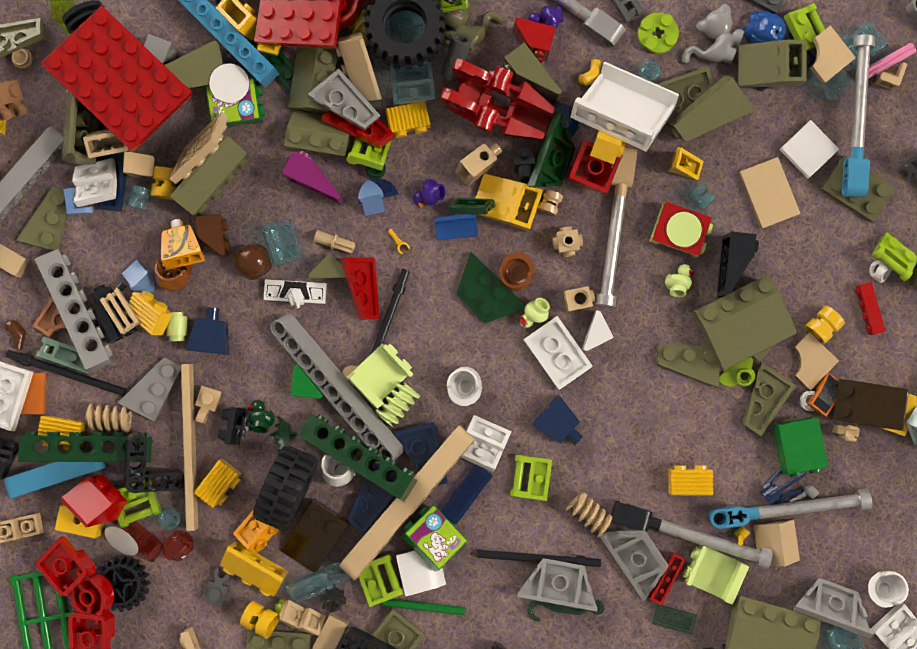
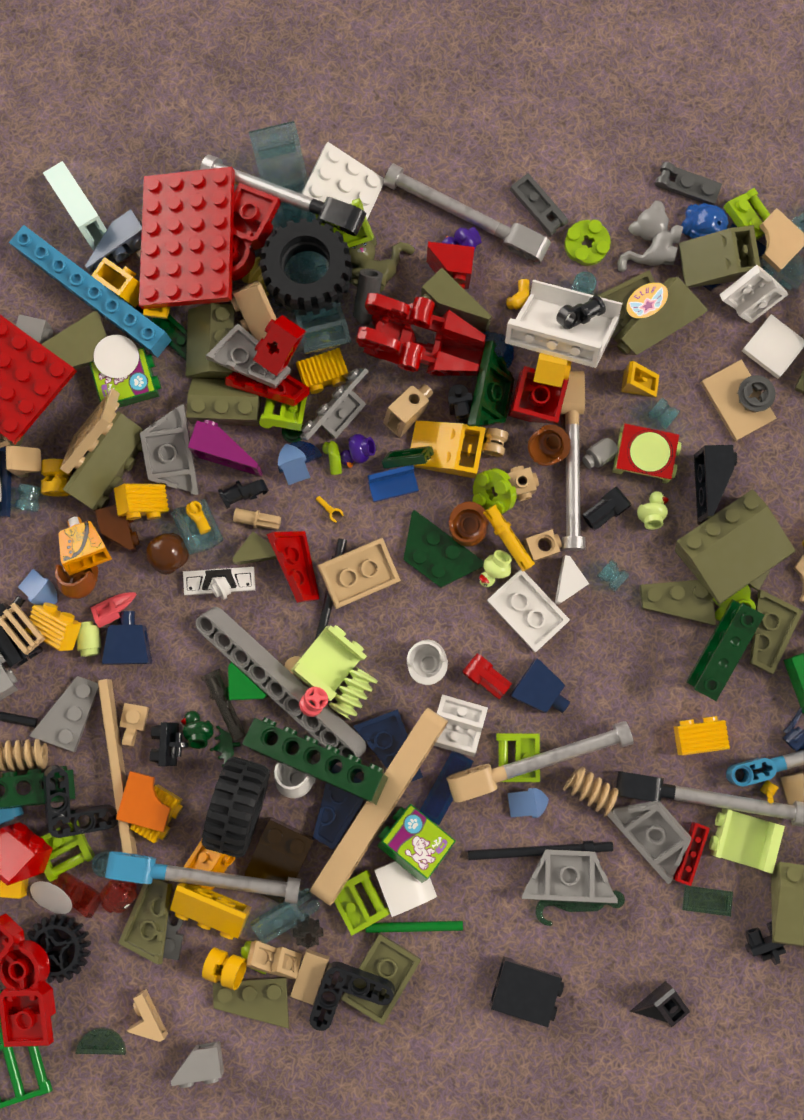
camera: 10 degrees left, 5 degrees down
(198, 303) = (108, 610): none -> coral plate
(200, 571) = (148, 921): none -> olive wing
(201, 529) = (144, 869): none -> piece
(206, 473) = (141, 803): none -> orange tile
(236, 213) = (141, 500): none -> yellow brick
(264, 175) = (168, 453): none -> light grey wing
(282, 231) = (195, 512): none -> yellow arm
(284, 388) = (219, 693): none -> clear smoke pin
(320, 216) = (237, 492): none -> black connector
(366, 404) = (318, 697): none -> coral wheel
(372, 94) = (287, 336): none -> red brick
(408, 196) = (332, 449): none -> lime arm
(416, 301) = (358, 573): none -> tan tile
(418, 156) = (340, 410): none -> light grey bracket
(498, 491) = (483, 779): none -> piece
(511, 402) = (482, 672): none -> red piece
(533, 247) = (483, 488): none -> lime plate
(534, 517) = (527, 803): none -> medium blue tile
(549, 288) = (506, 534): none -> yellow pin
(596, 212) = (549, 445): none -> dark orange helmet
(635, 332) = (611, 574): none -> clear light blue wheel
(640, 224) = (600, 453): none -> light grey arm
(641, 99) = (581, 312): none -> black connector
(643, 271) = (611, 505): none -> black piece
(702, 94) = (647, 300): none -> sticker
(721, 410) = (724, 649): none -> dark green fence
(789, 181) = (757, 383): none -> dark grey gear
(797, 101) = (753, 294): none -> white slope

